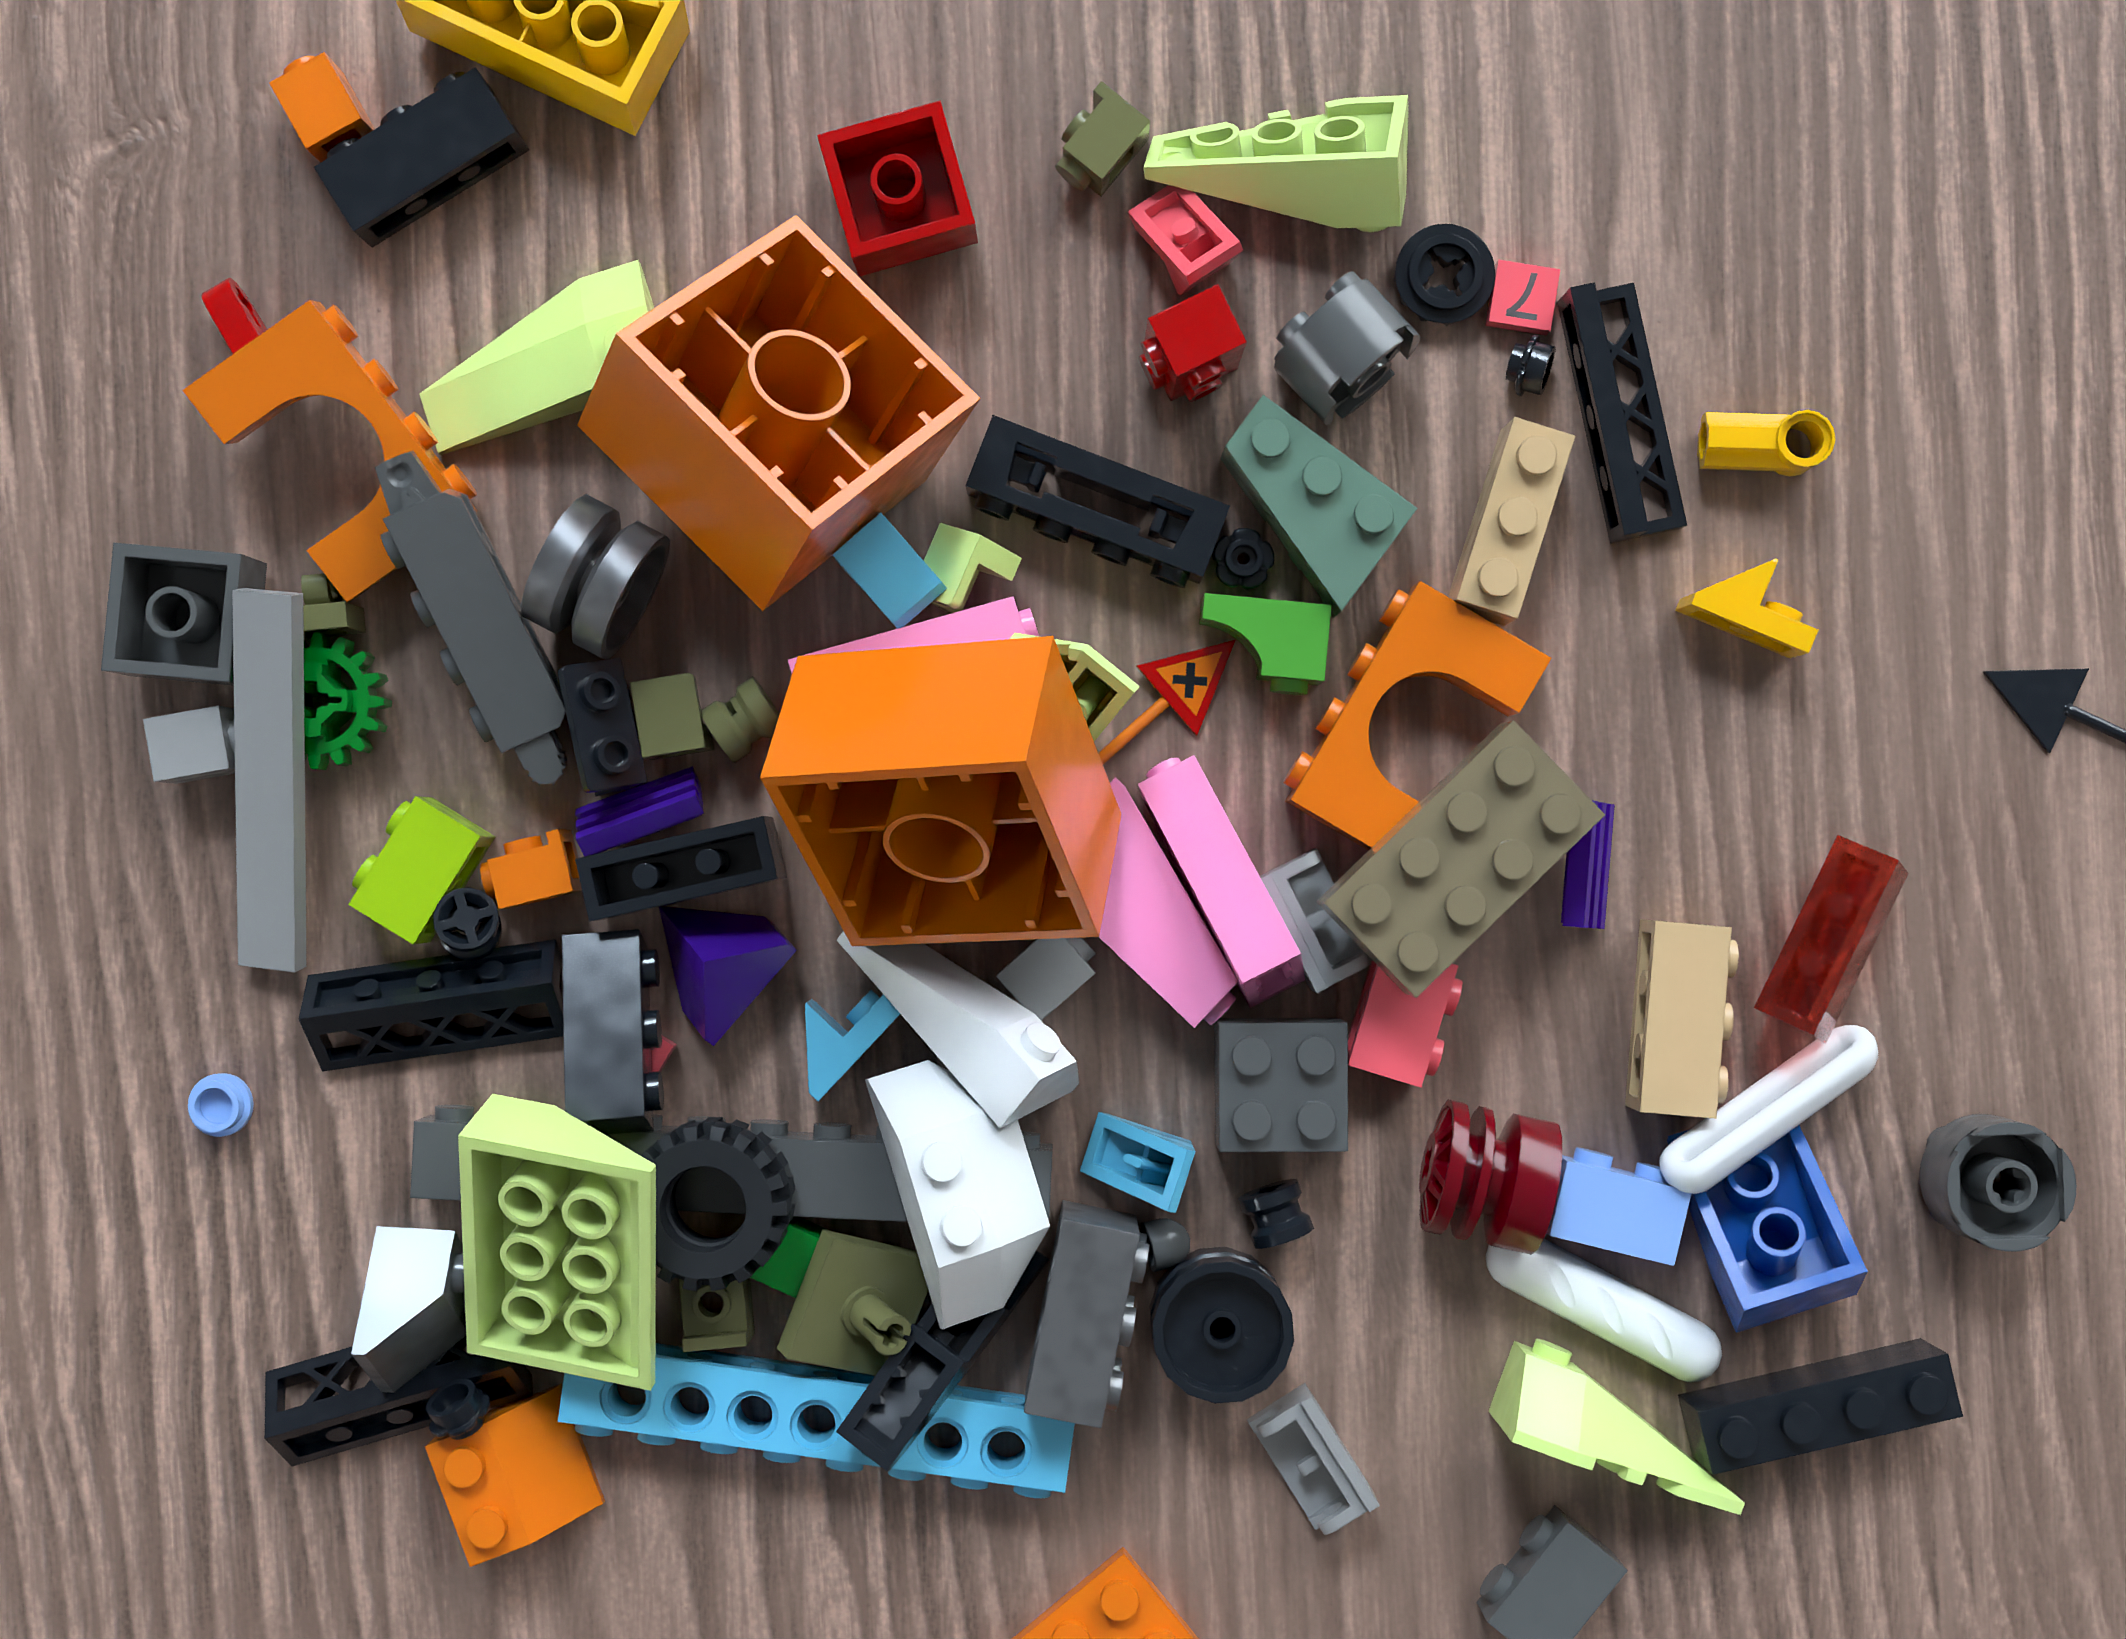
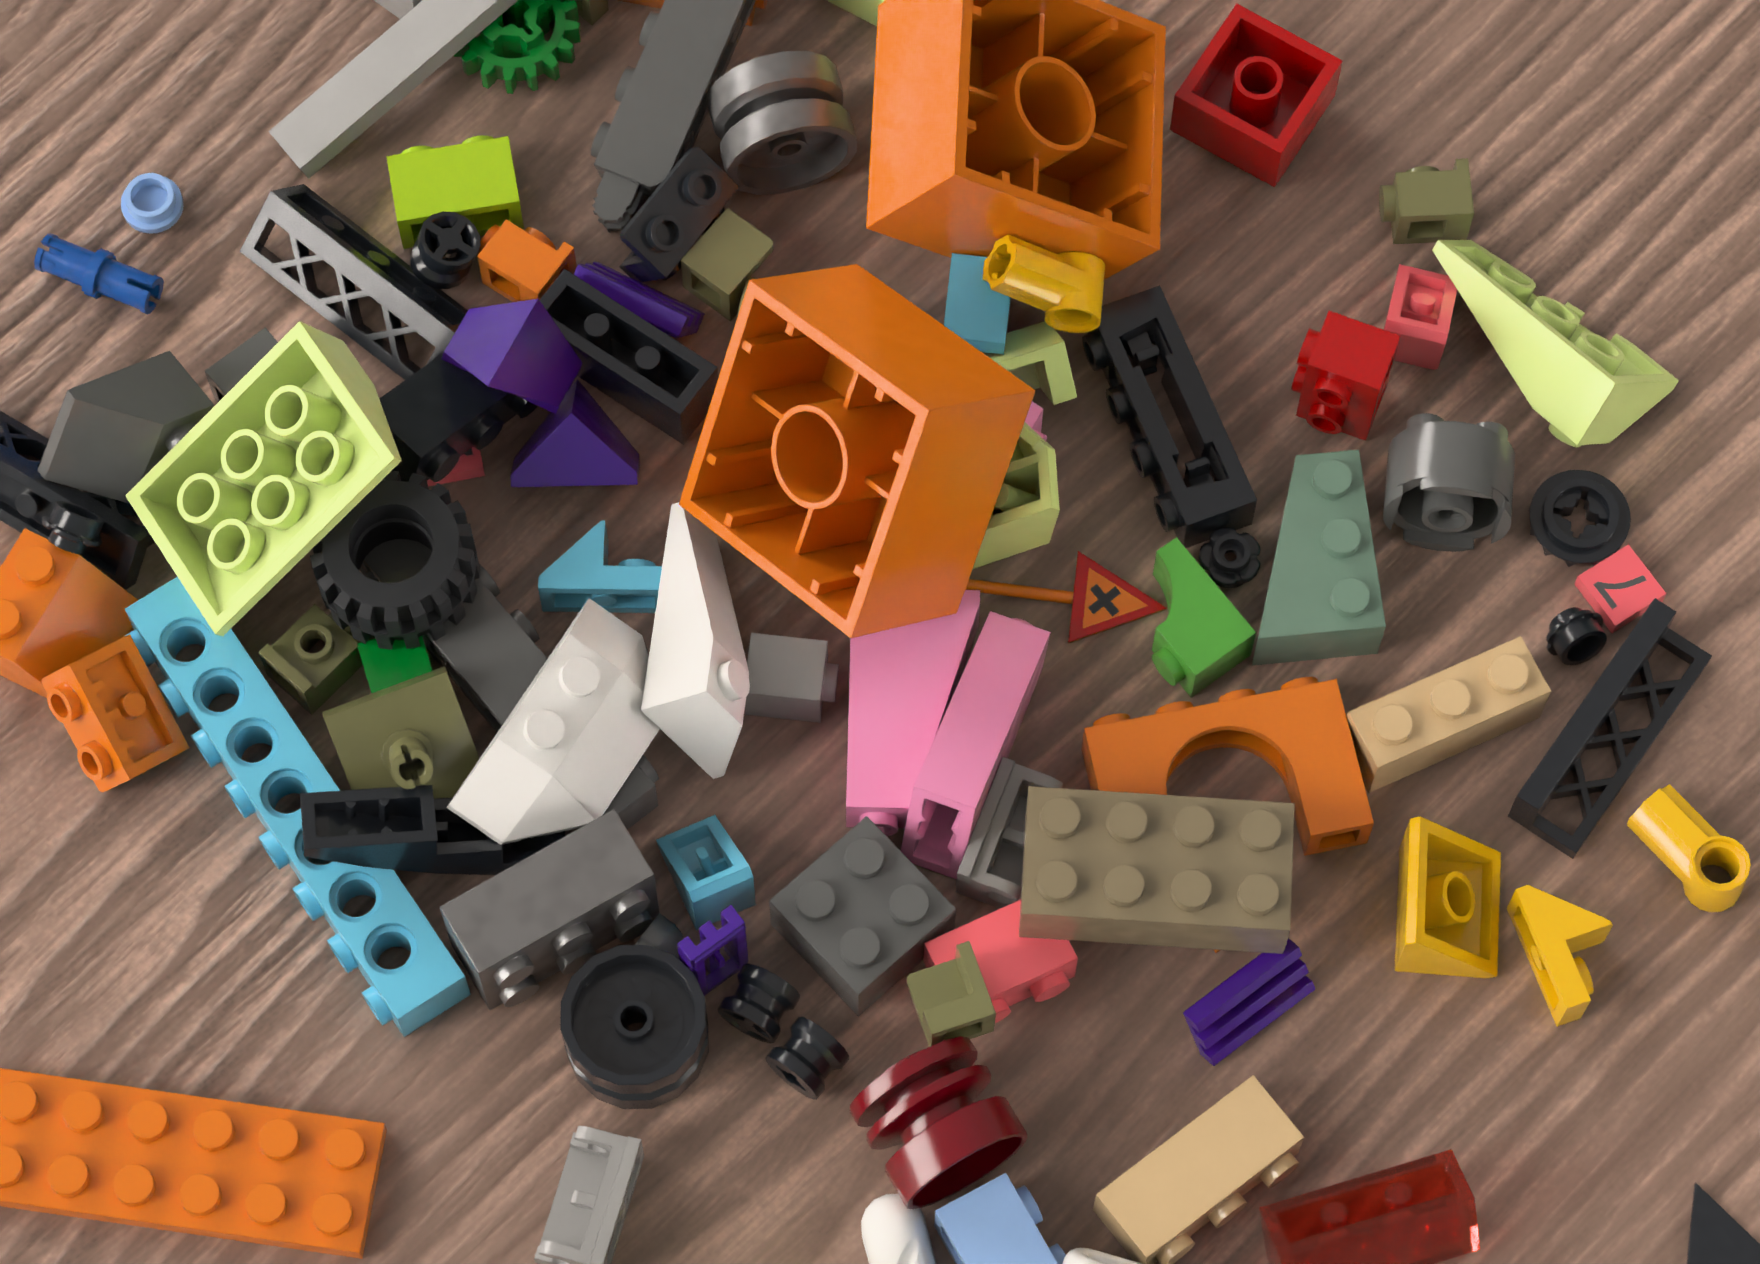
camera: 45 degrees right, 20 degrees down
(245, 1195) = (98, 273): none -> blue pin
(616, 967) = (516, 351): none -> dark purple slope
(635, 1491) = (114, 714): none -> orange bracket
(931, 498) = (1060, 284): none -> yellow piece
(1221, 1223) = (707, 953): none -> dark purple tile
(1347, 1215) = (807, 1057): none -> black wheel
(1416, 1092) = (952, 998): none -> olive panel
(1643, 657) = (1446, 903): none -> yellow slope

